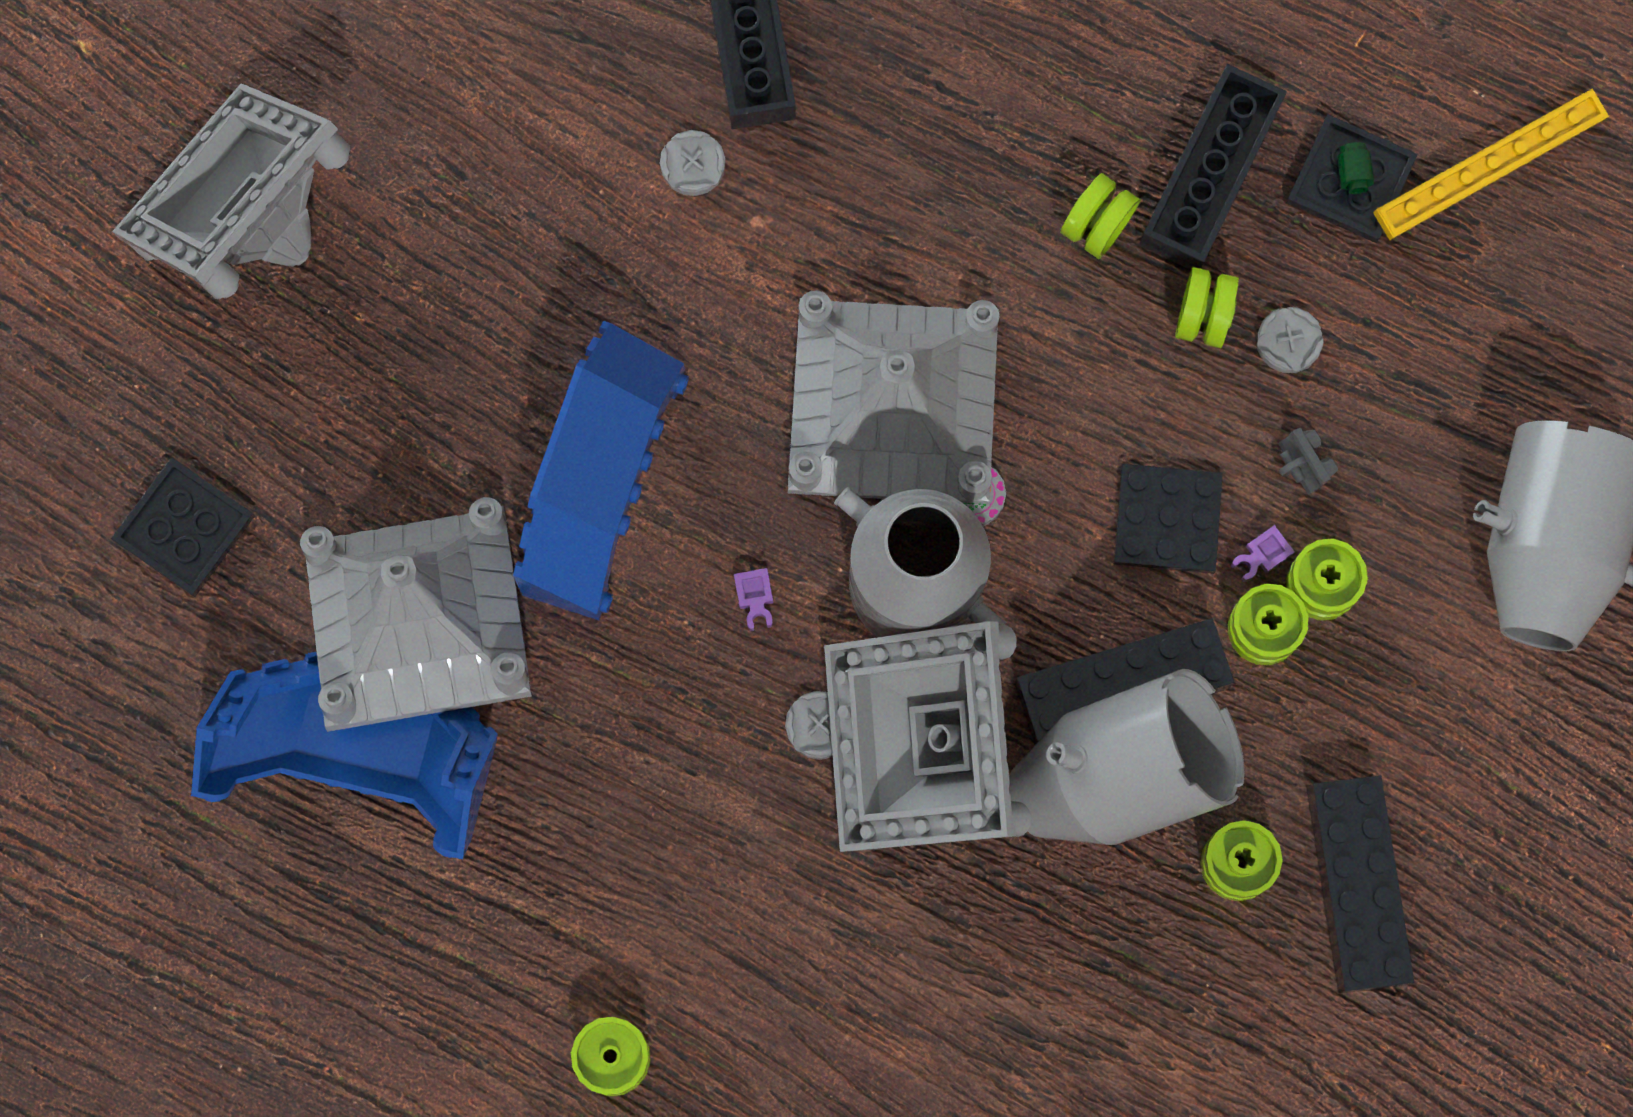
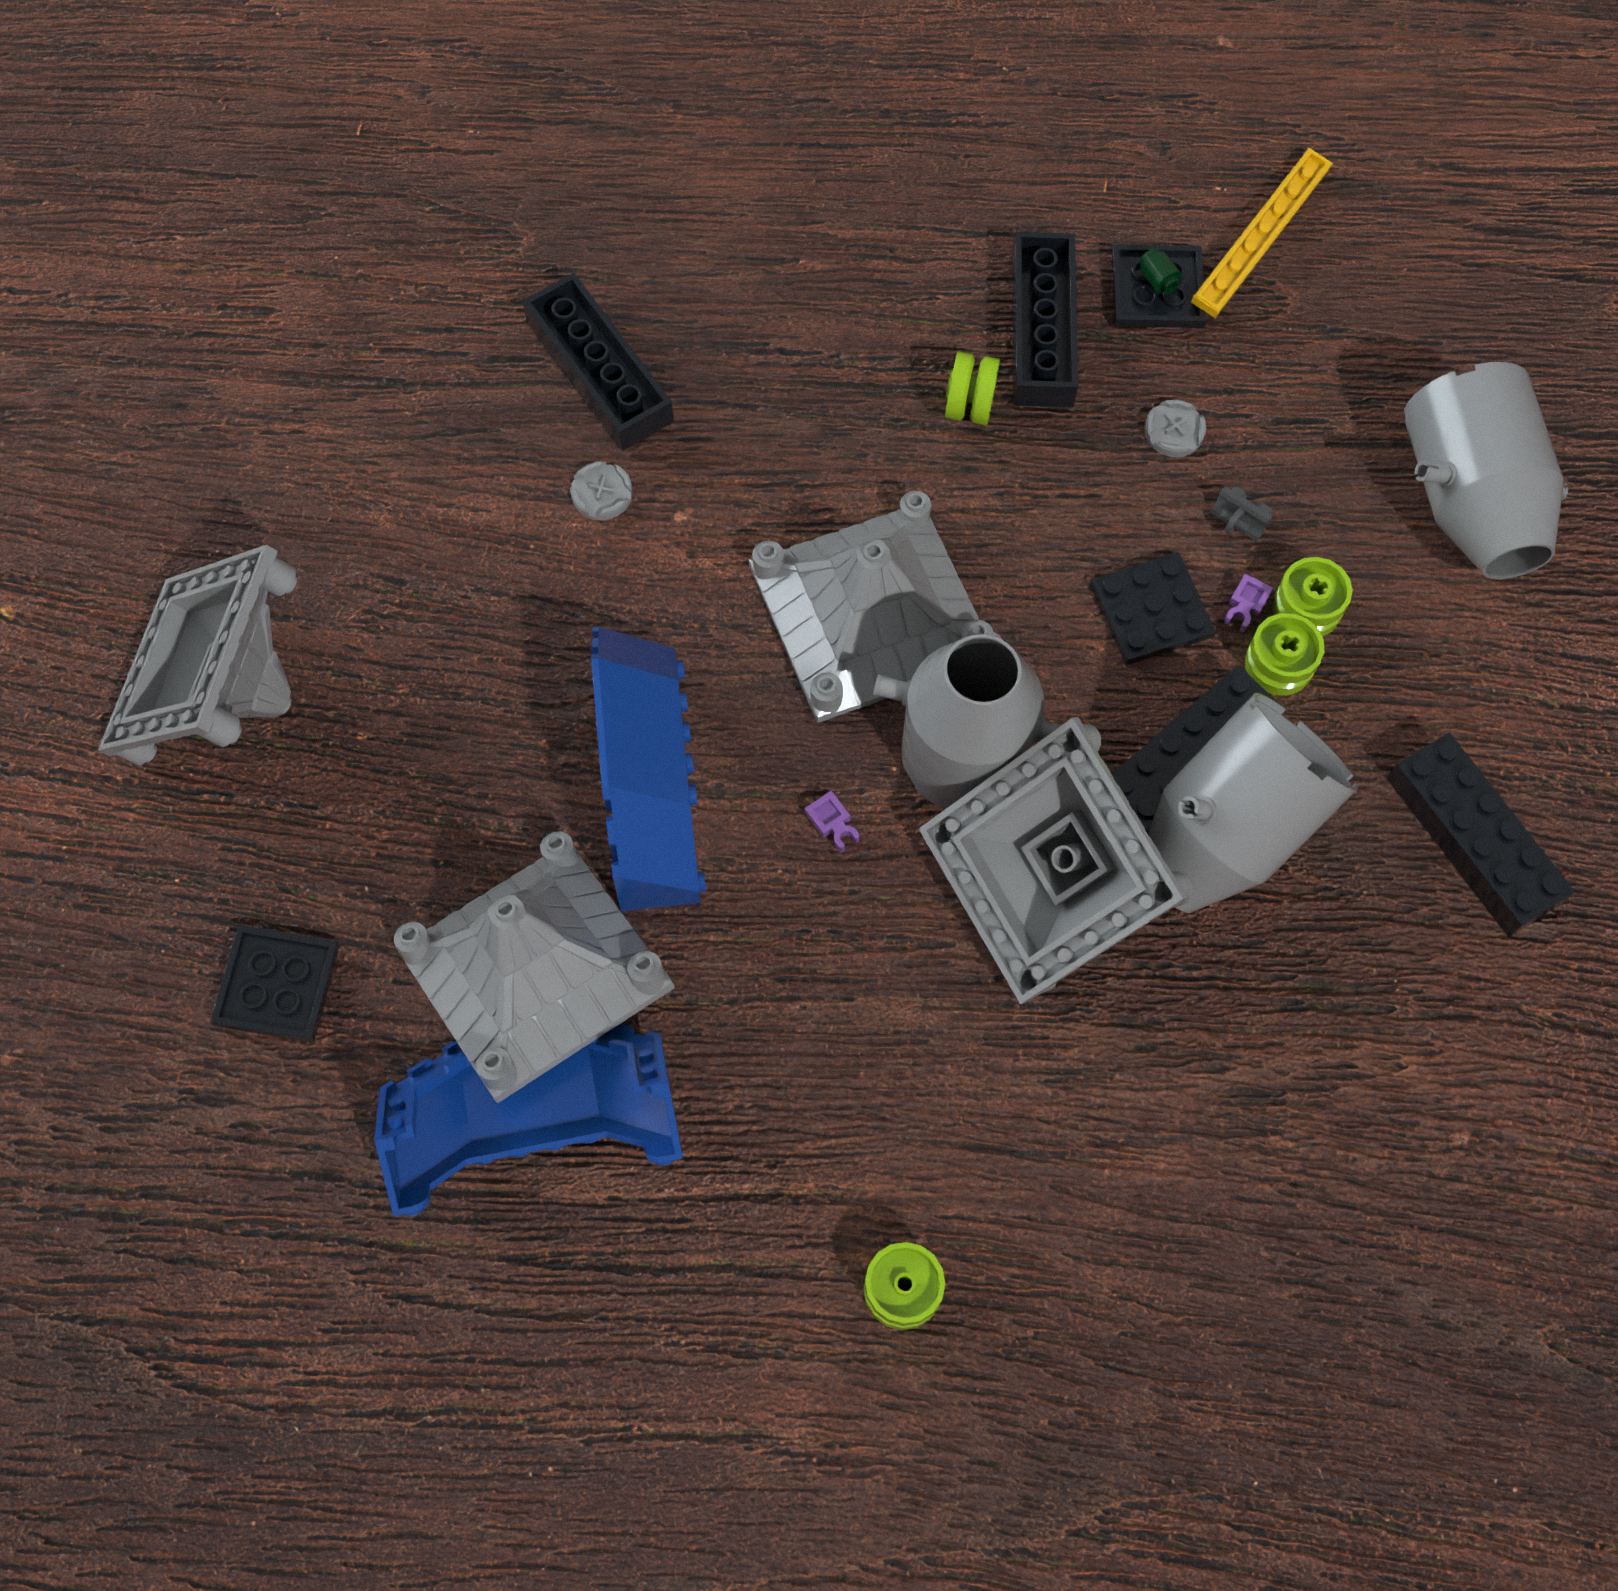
camera: 25 degrees left, 10 degrees down
(809, 725) = (938, 910): light grey tile -> none
(1212, 308) = (1098, 423): lime wheel -> none
(1261, 858) = (1370, 857): lime wheel -> none

